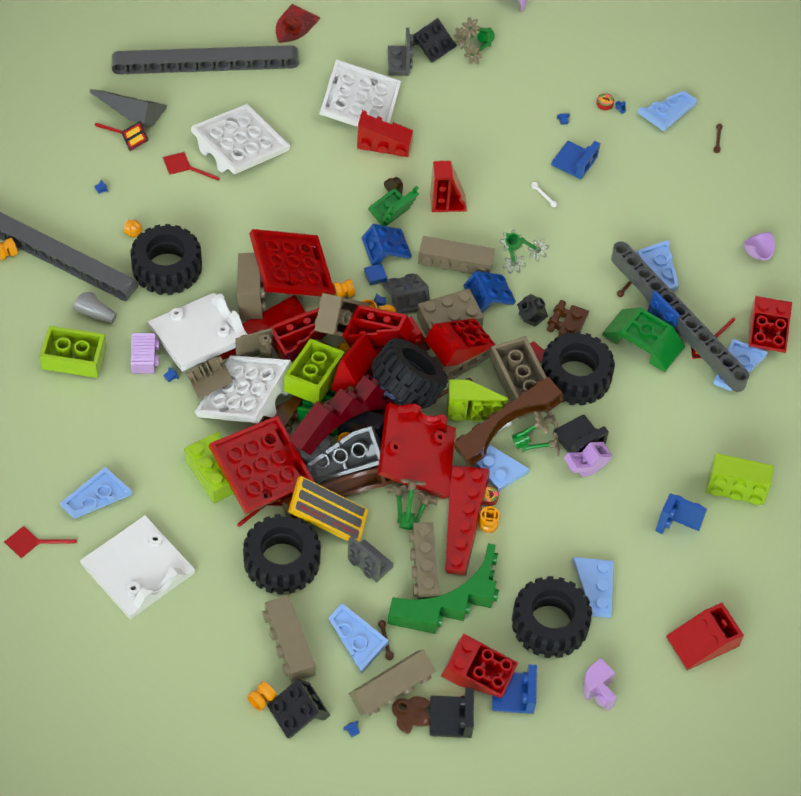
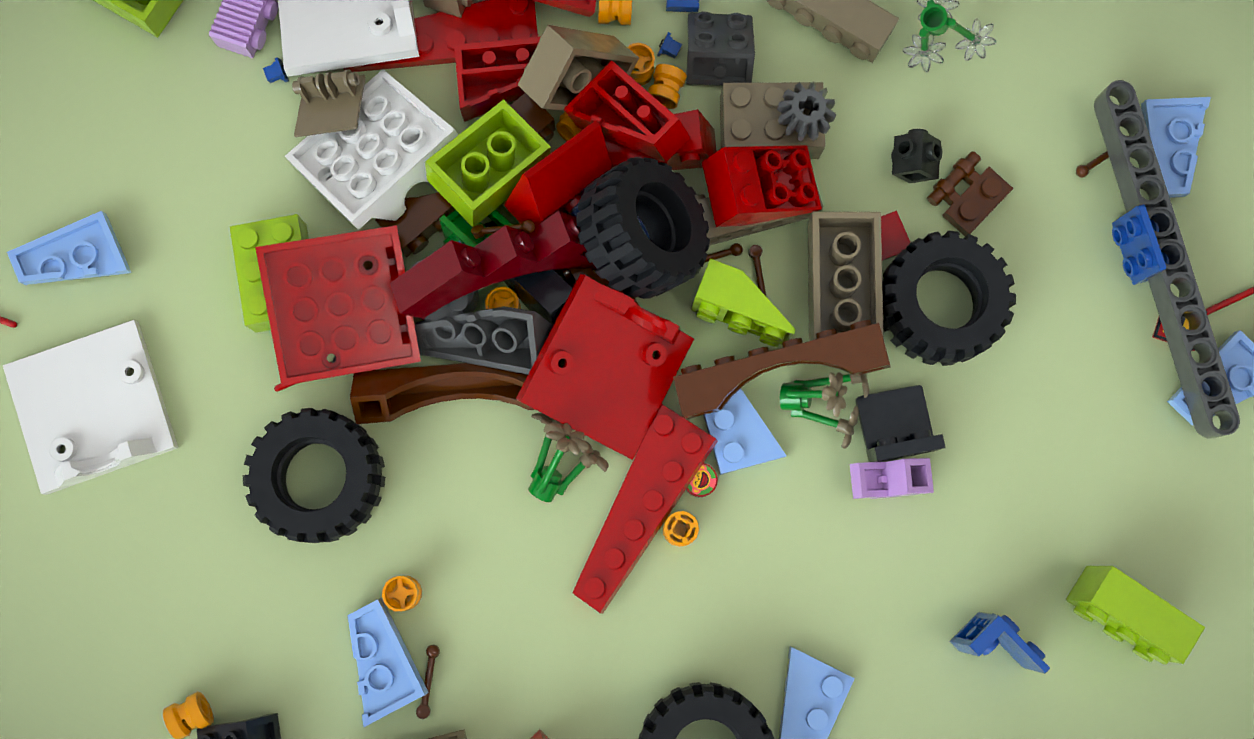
camera: 20 degrees right, 25 degrees up
(255, 344) = (430, 67): dark tan hinge -> none
(289, 638) = (268, 634): dark tan brick -> none
(327, 510) = (416, 426): tile -> none
(356, 594) = (398, 589): none -> light orange wheel
(368, 559) = (455, 530): dark grey bracket -> none
(424, 560) = (540, 578): dark tan brick -> none
(428, 613) = (507, 665): green arch -> none
(467, 300) = (819, 113): none -> dark grey gear
(488, 289) = (861, 90): blue bracket -> none
(648, 334) = (1091, 271): green slope -> none

